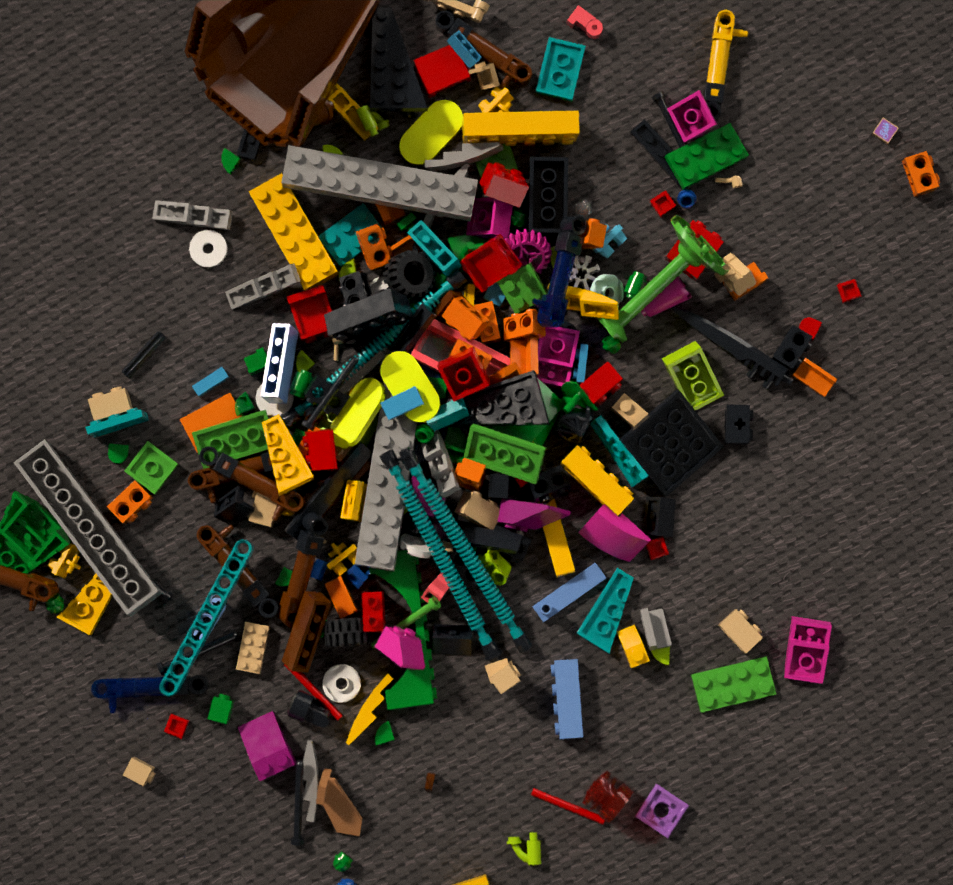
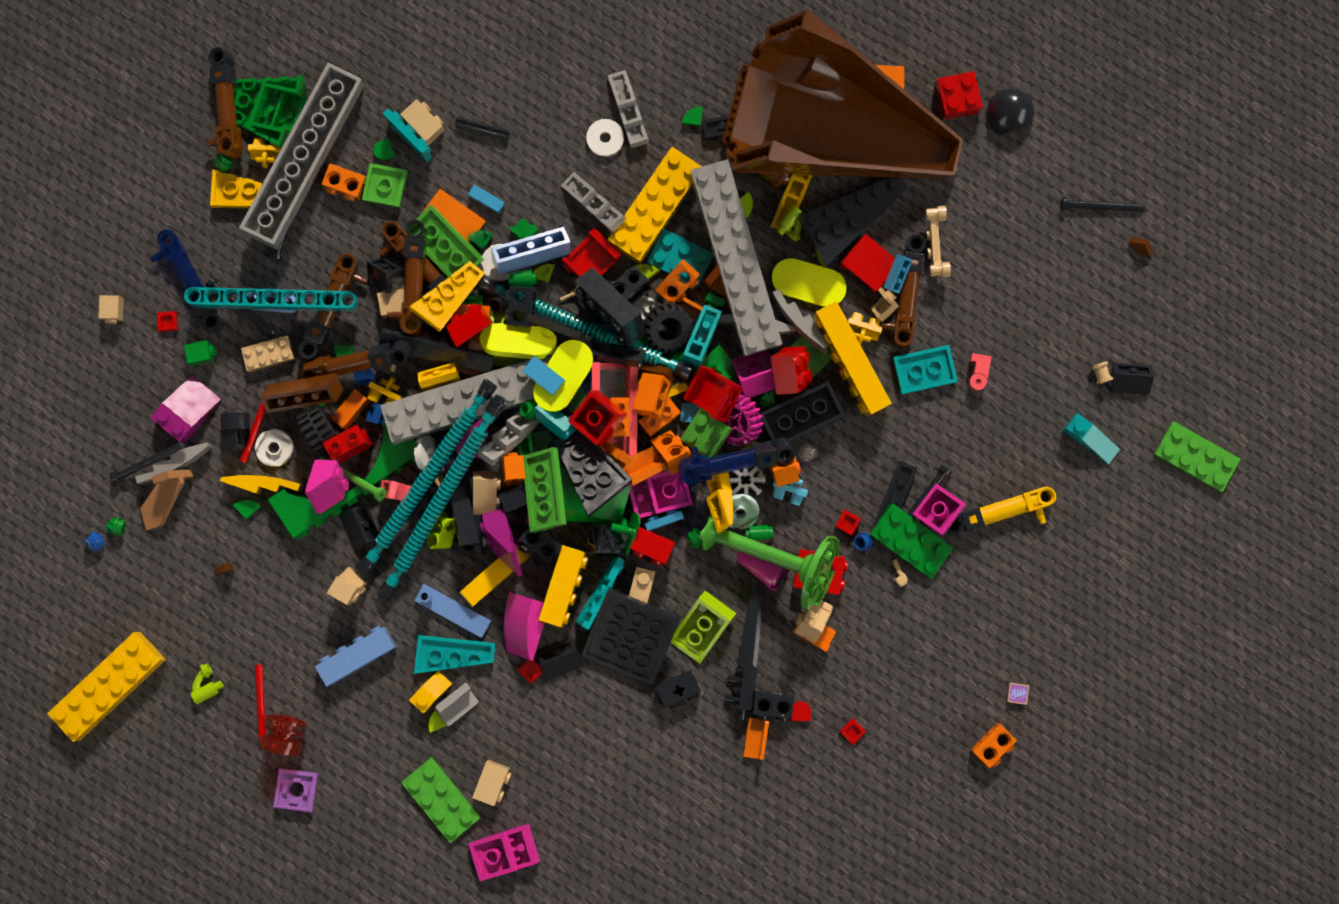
camera: 55 degrees right, 0 degrees up
(330, 394) = (487, 303): black bar -> none

